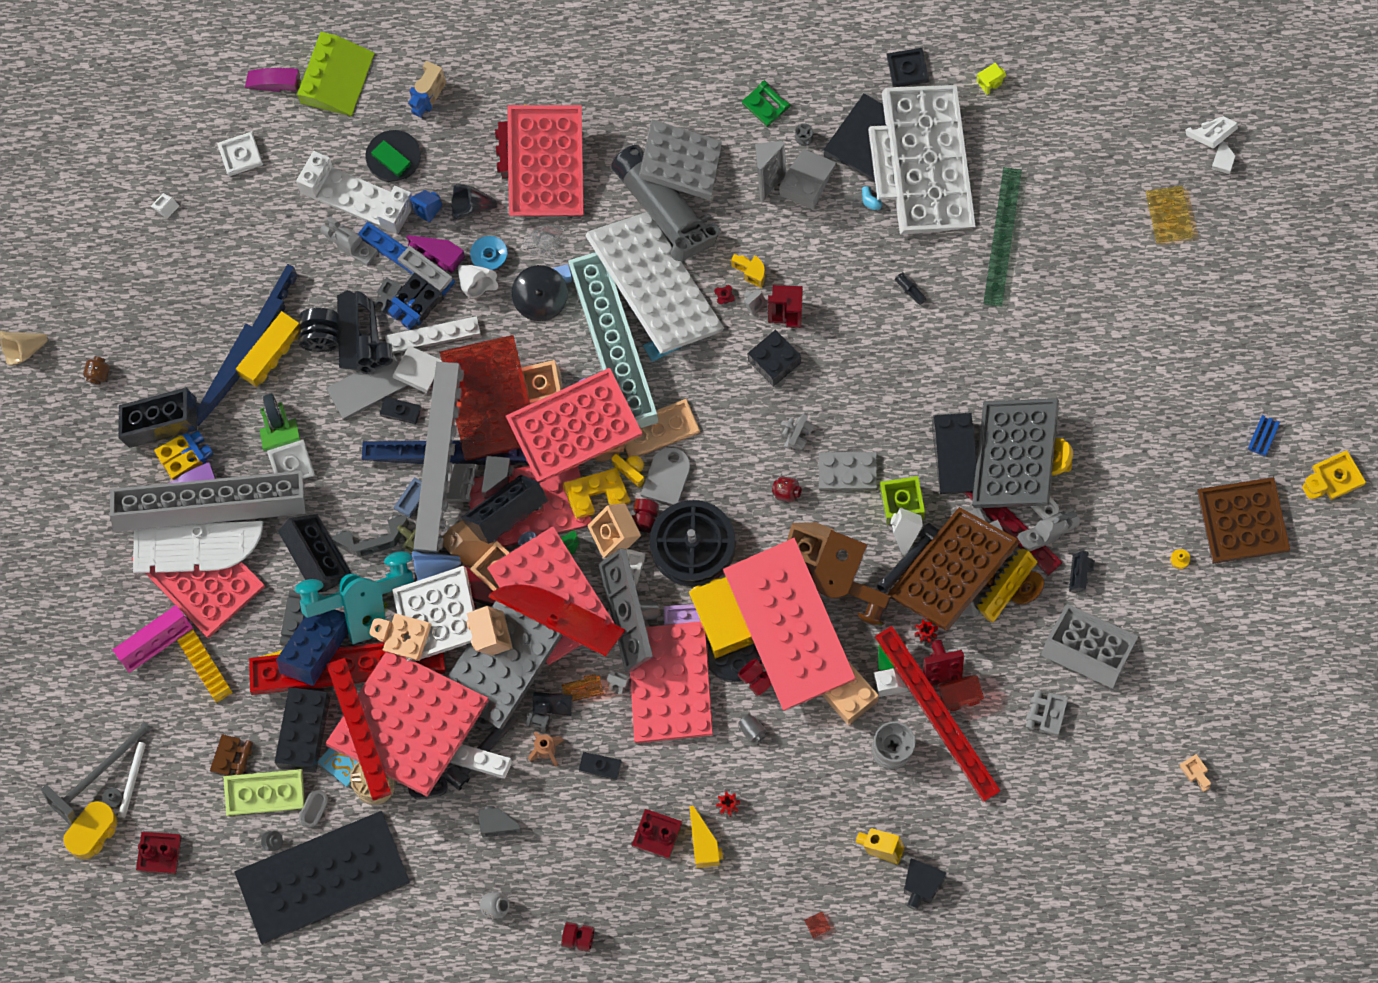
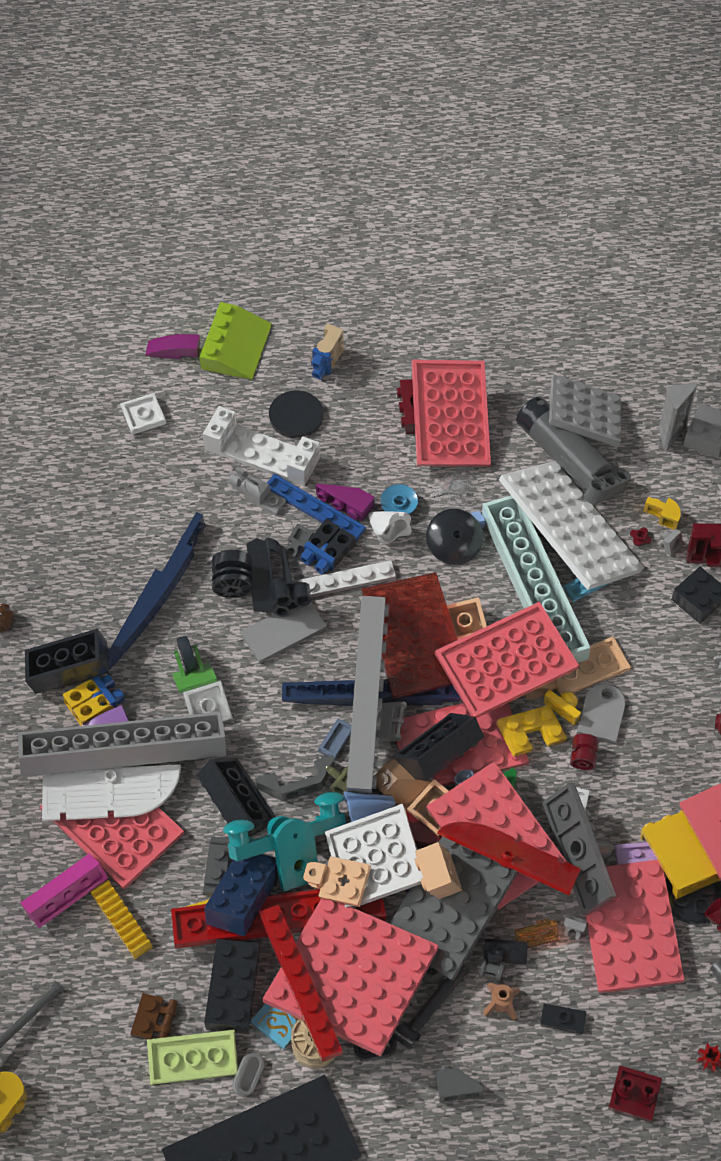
camera: 10 degrees left, 10 degrees down
(112, 797) = (21, 1067): dark grey tile -> none
(131, 780) = (36, 1070): white bar -> none
(158, 853) = (74, 1129): dark red plate -> none
(165, 205) = (68, 462): white slope -> none
(269, 349) = (180, 594): yellow brick -> none
(272, 841) = (203, 1112): dark grey wheel -> none
(390, 158) = (295, 415): green tile -> none
(400, 410) = (318, 652): black plate -> none
(416, 369) = (335, 611): white tile -> none
(425, 268) = (328, 509): light grey plate -> none
(426, 204) = (333, 457): blue slope -> none
(470, 201) = (375, 453): black hat -> none
(482, 761) = (436, 1016): white plate -> none
(496, 475) = (426, 712): dark grey slope -> none
(613, 529) = (555, 765): light nougat brick -> none
(692, 542) = (638, 779): black wheel -> none
(705, 845) = (689, 1102): yellow slope -> none
(761, 107) = (655, 367): green plate -> none
(804, 130) = (704, 385): dark grey wheel -> none

